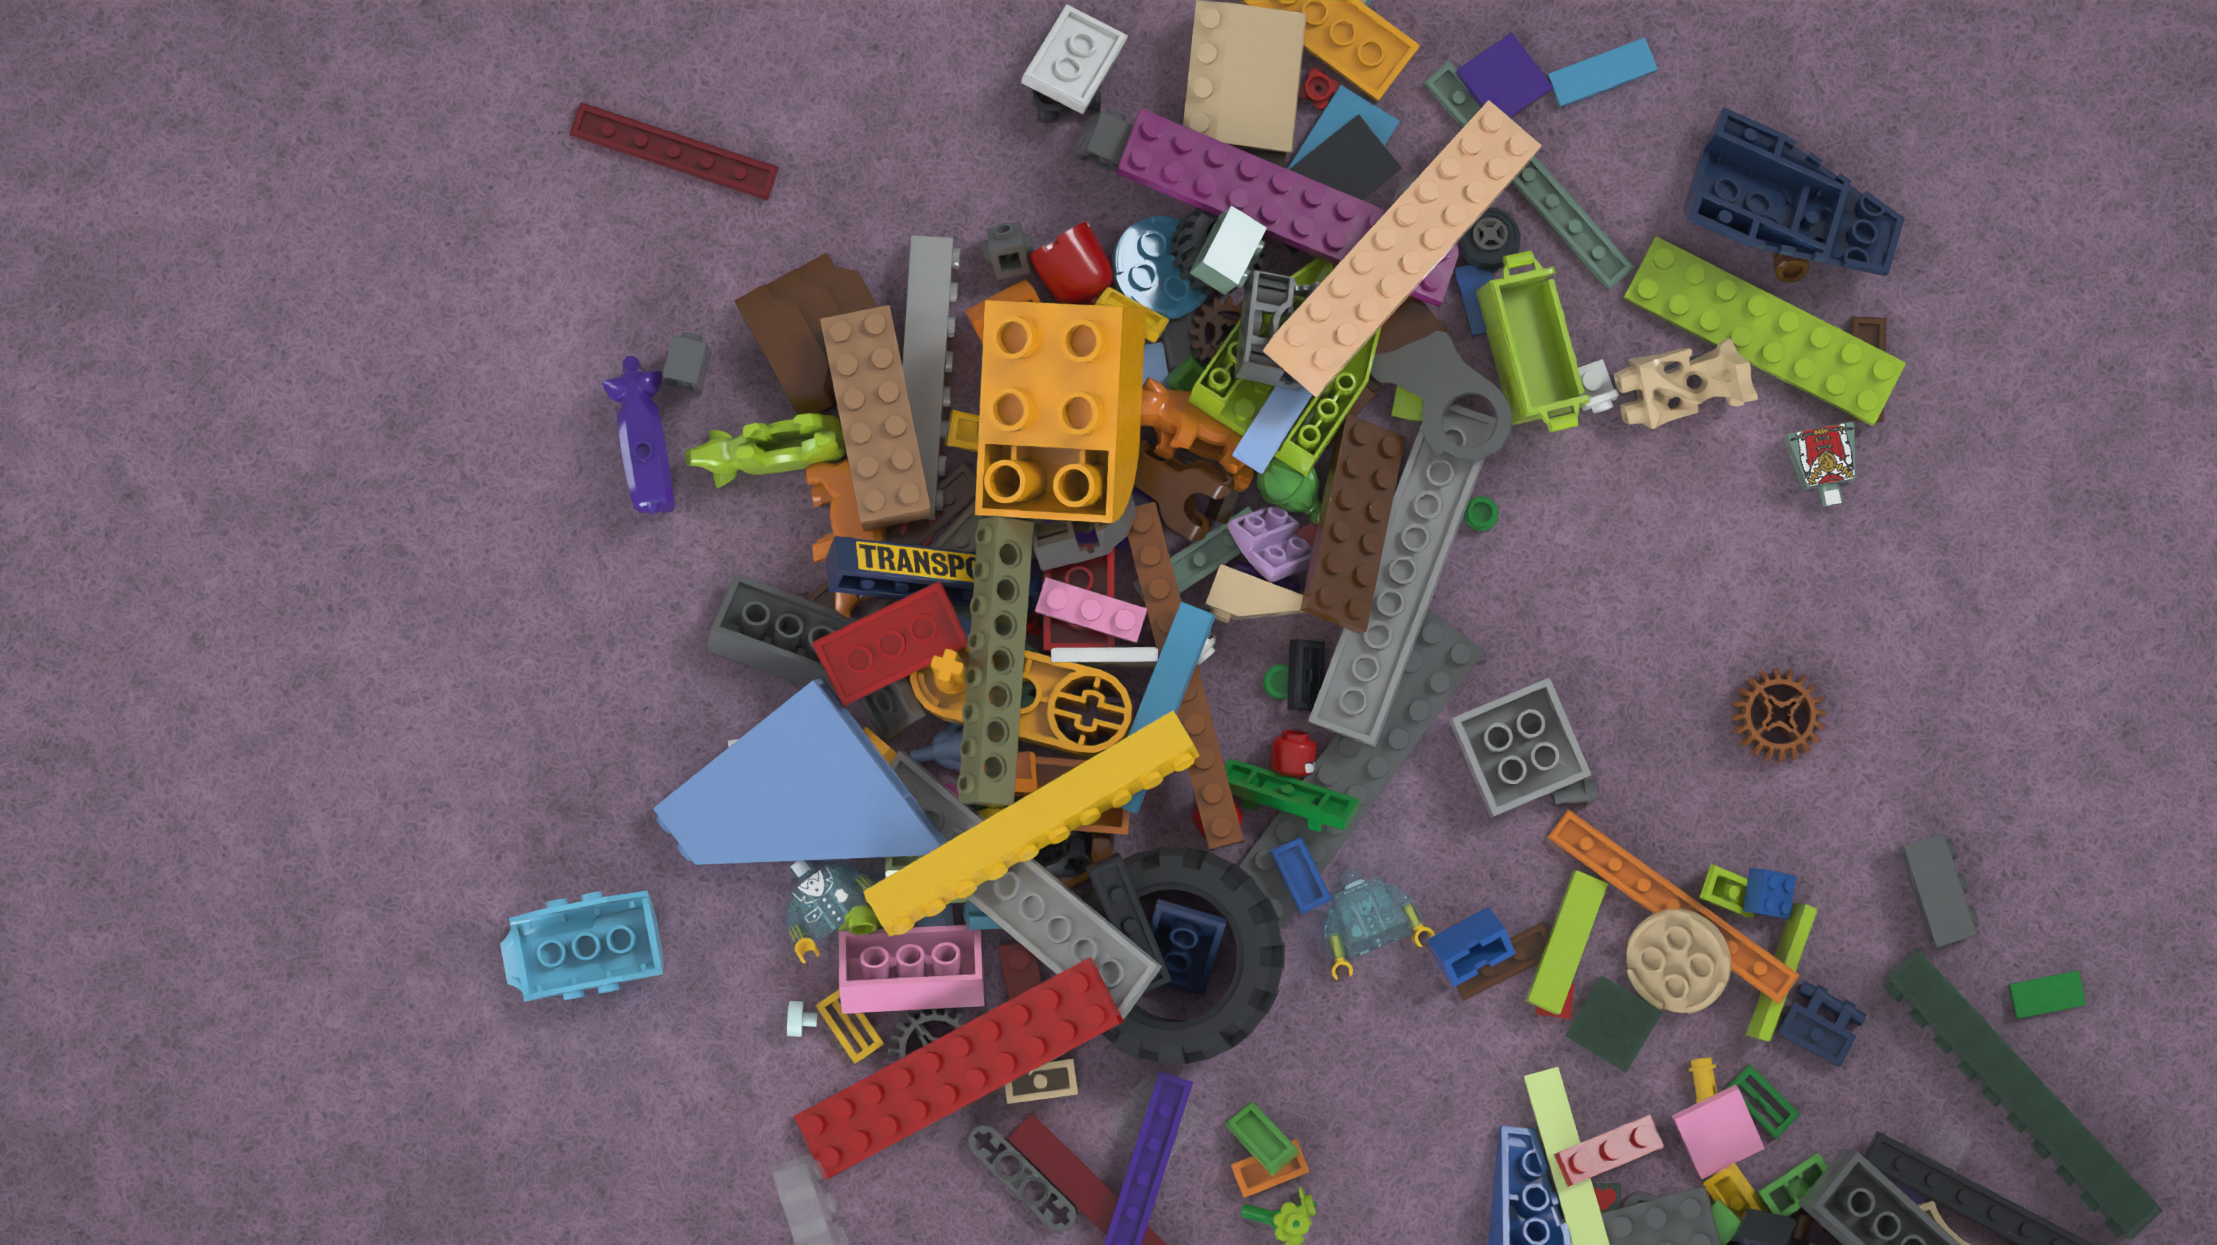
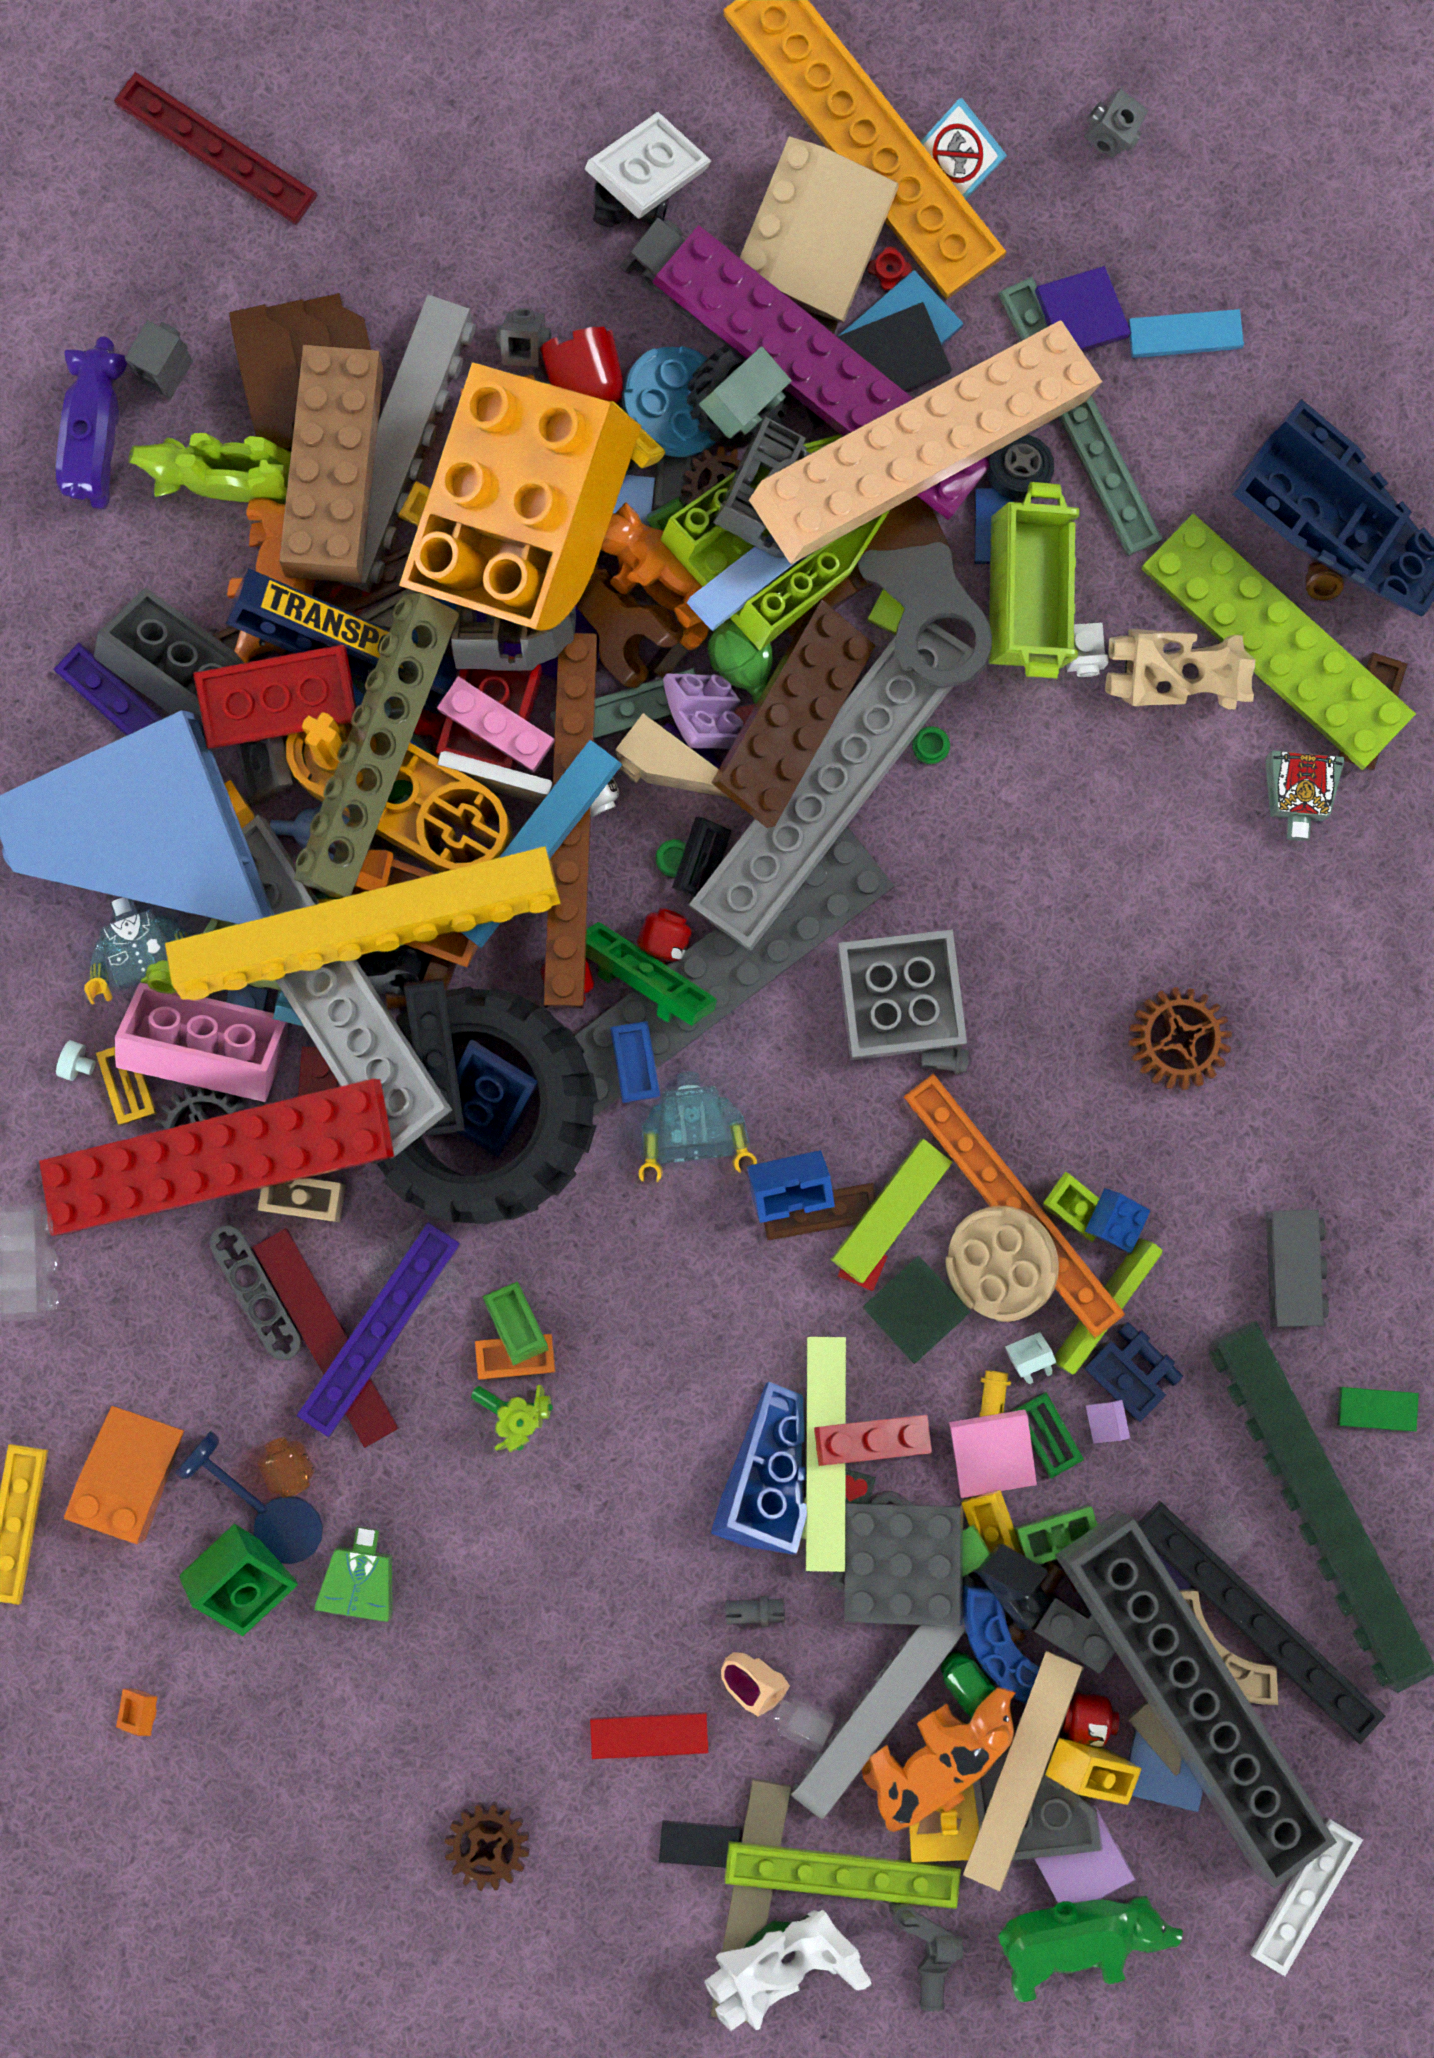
camera: 15 degrees right, 0 degrees up
(730, 680) = (105, 691): none -> dark purple tile
(1727, 1035) = (1030, 1356): none -> light aqua tile
(1811, 1074) = (1107, 1421): none -> lavender tile

